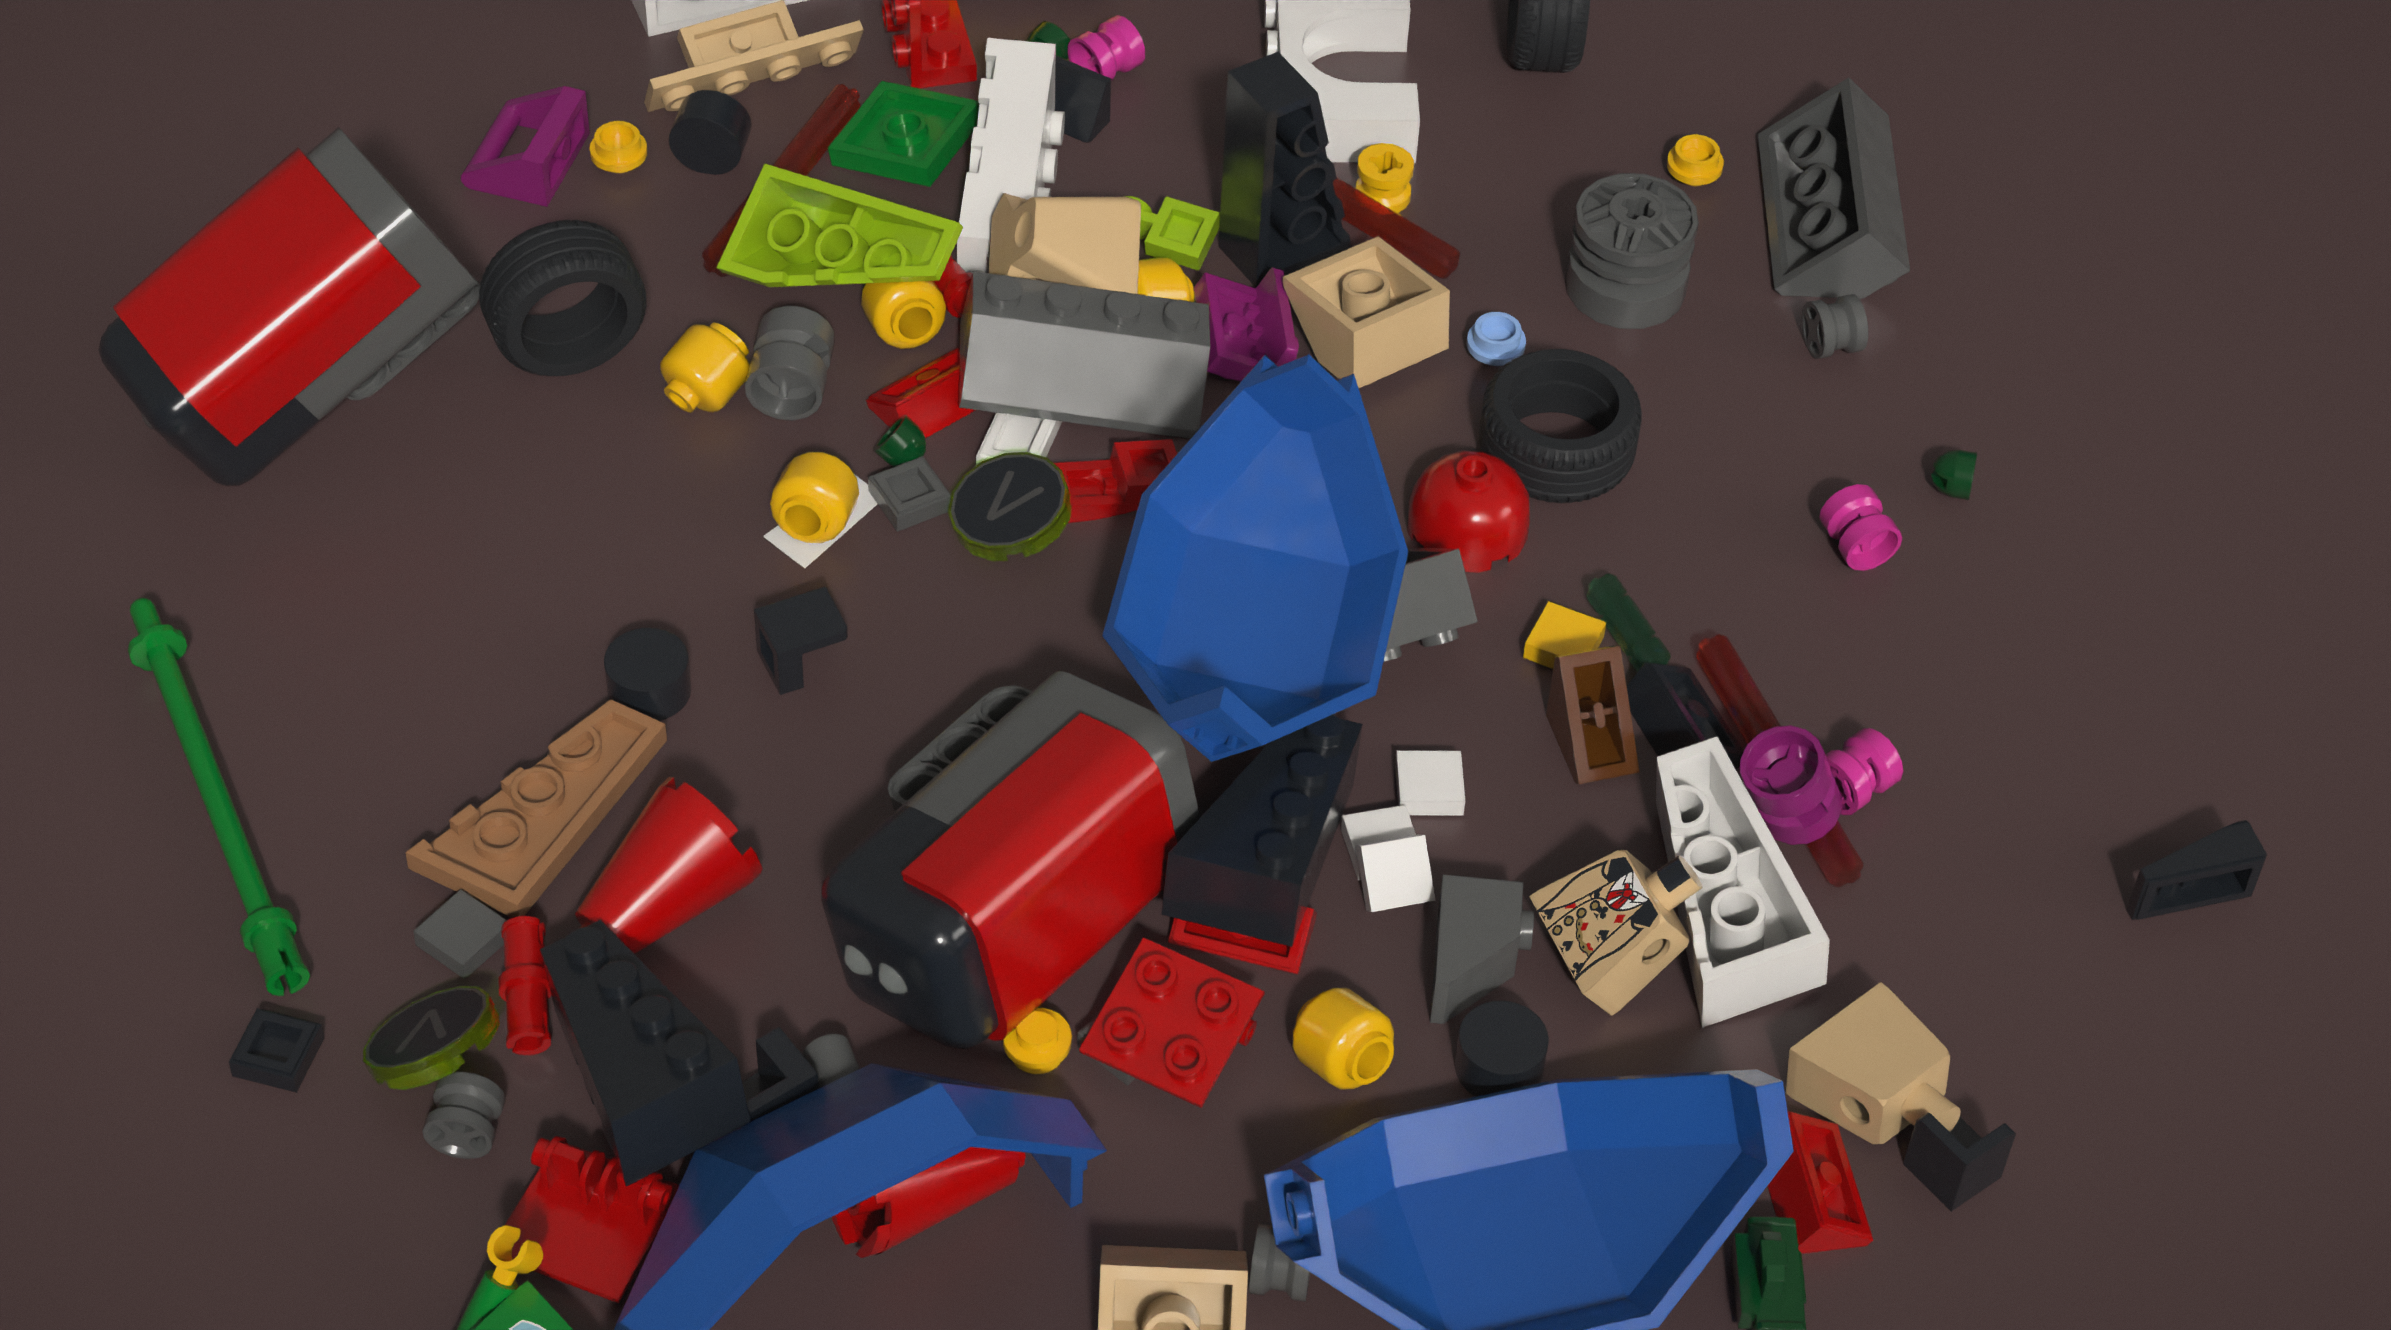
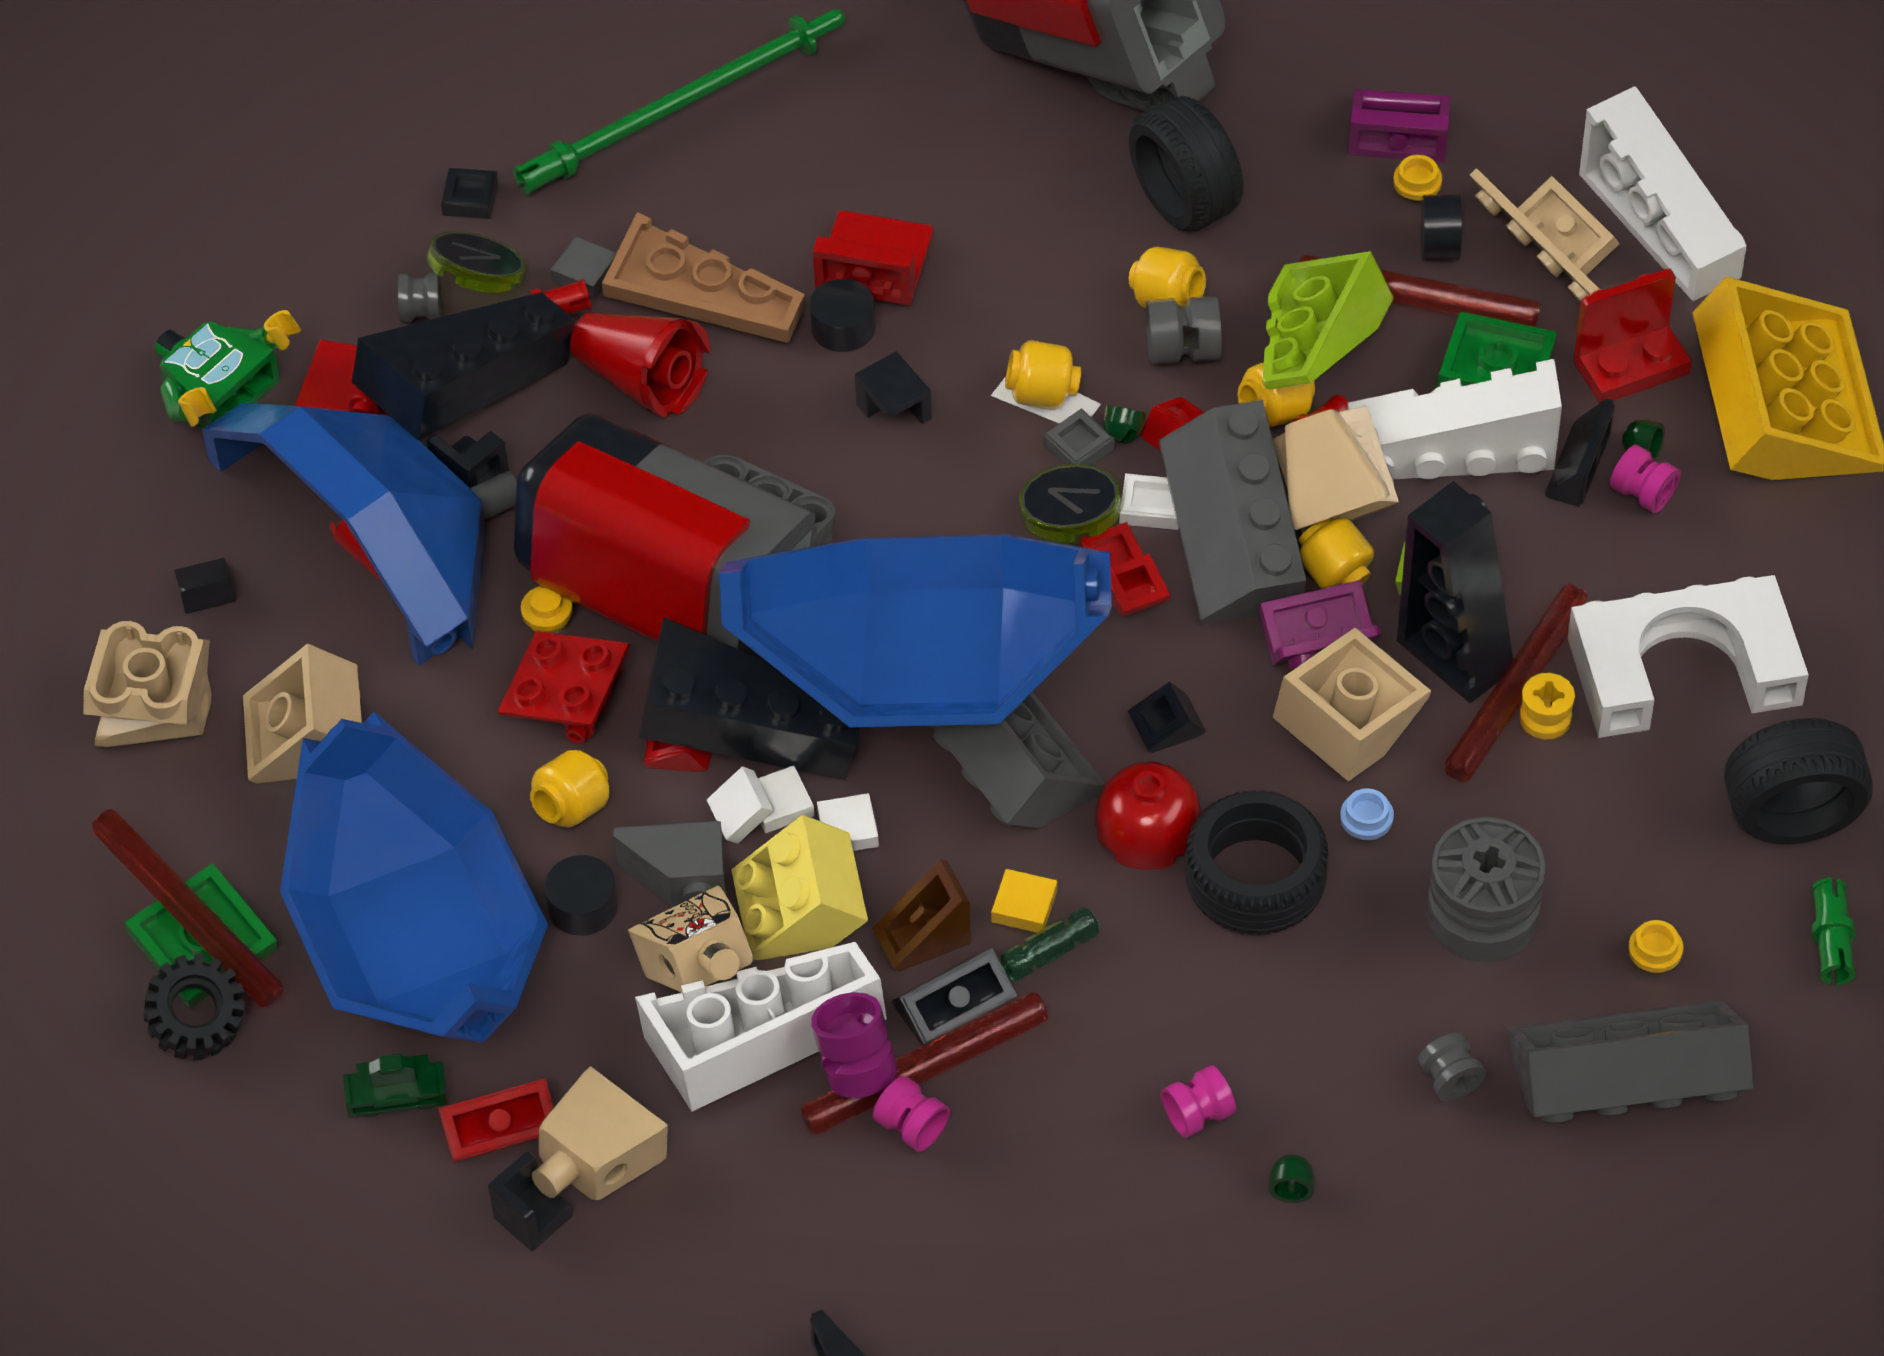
camera: 85 degrees right, 5 degrees up
(561, 629) = (876, 252): none -> red bracket
(1534, 822) = (799, 891): none -> light yellow slope
(1696, 37) = (1833, 931): none -> green pin

